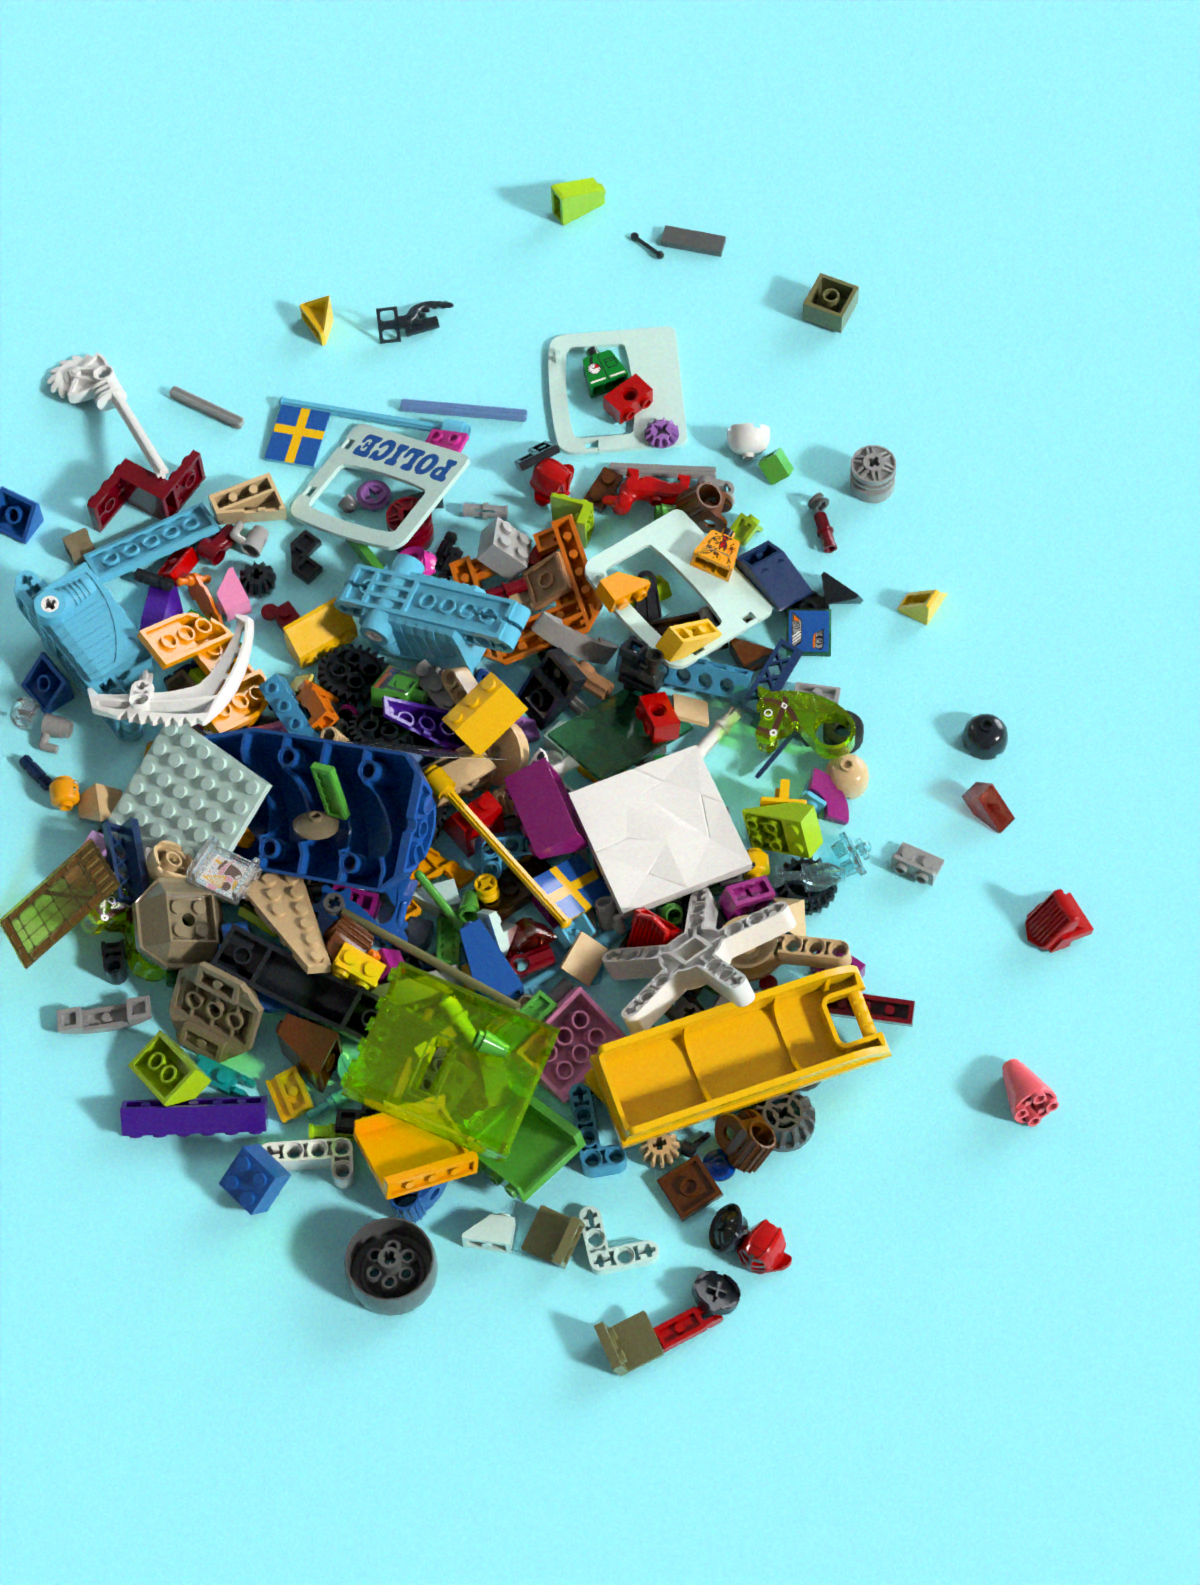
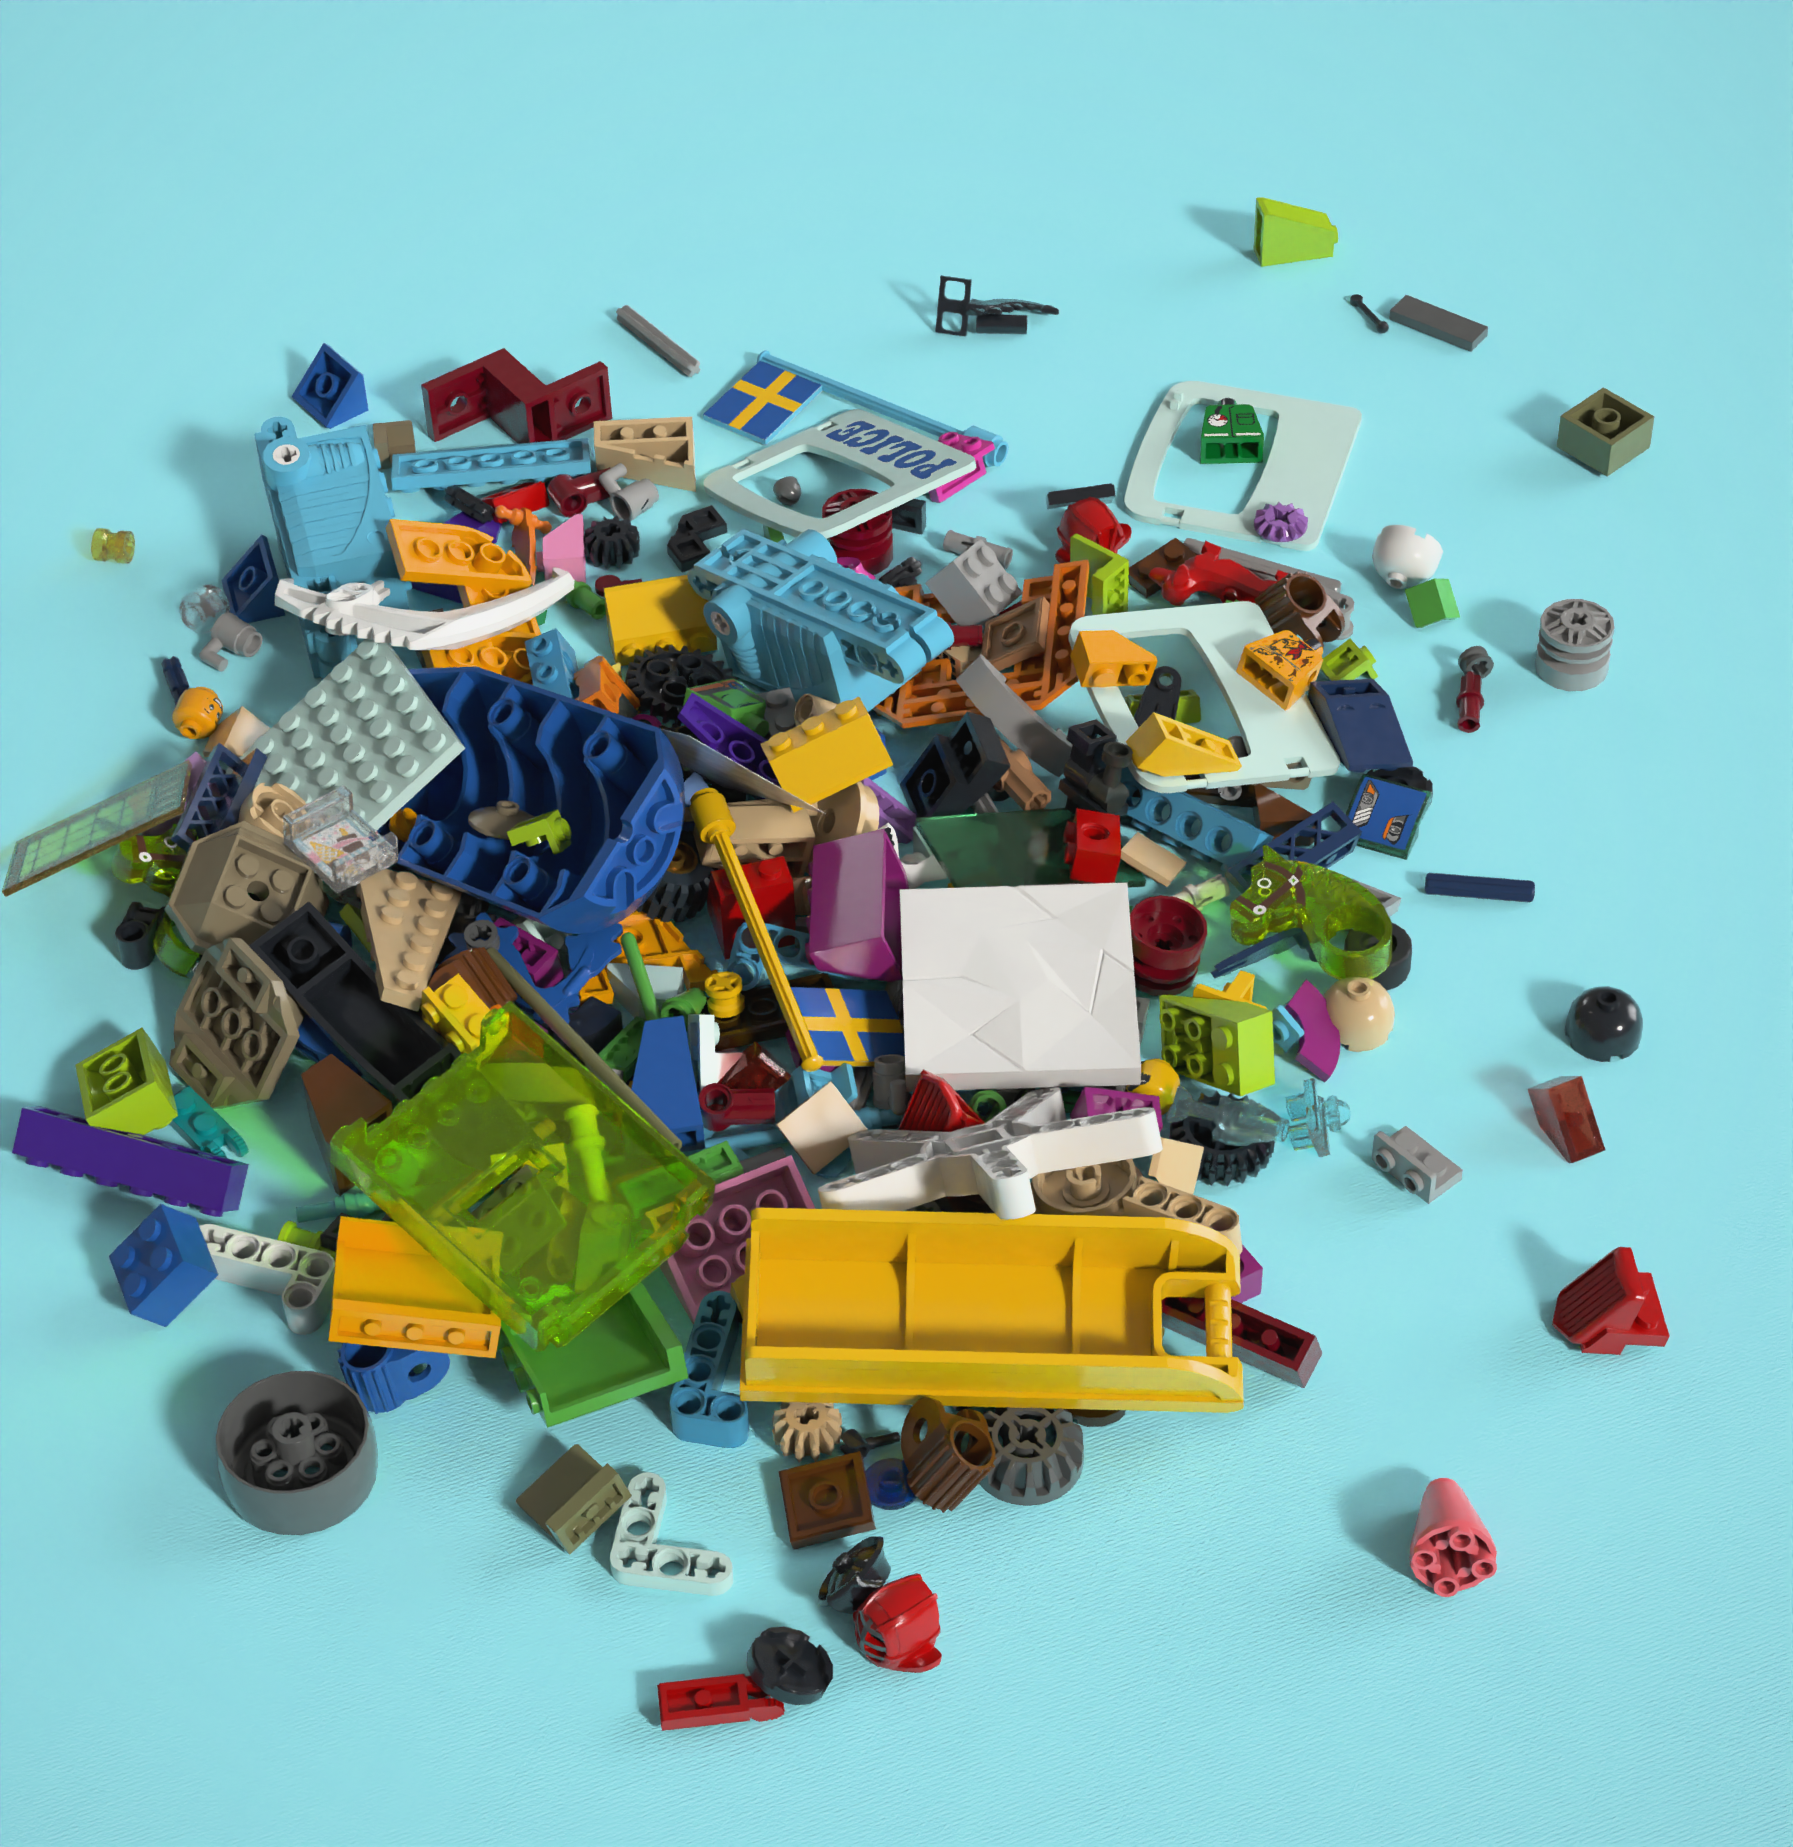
camera: 20 degrees right, 15 degrees down
(96, 380) = (530, 284): white piece -> none
(104, 1019) = (81, 1003): light grey slope -> none
(262, 627) = (583, 598): none -> bright green pin
(289, 1094) = (287, 1178): yellow plate -> none
(318, 317) = (865, 277): yellow slope -> none
(330, 790) = (536, 764): bright green plate -> none
(345, 827) = (541, 828): none -> lime bracket
(377, 488) = (816, 488): medium lavender gear -> none
(464, 410) = (1011, 429): medium blue axle -> none
(489, 1043) = (602, 1177): bright green cone -> none
(491, 1234) = (479, 1463): light aqua slope -> none
(629, 1343) = (607, 1693): olive bracket -> none
(632, 389) = (1250, 469): red brick -> none
(727, 766) = (1166, 944): none -> dark red wheel
(838, 593) = (1454, 778): black slope -> none
(880, 664) = (1479, 887): none -> dark blue axle
(921, 604) = (1583, 829): slope -> none

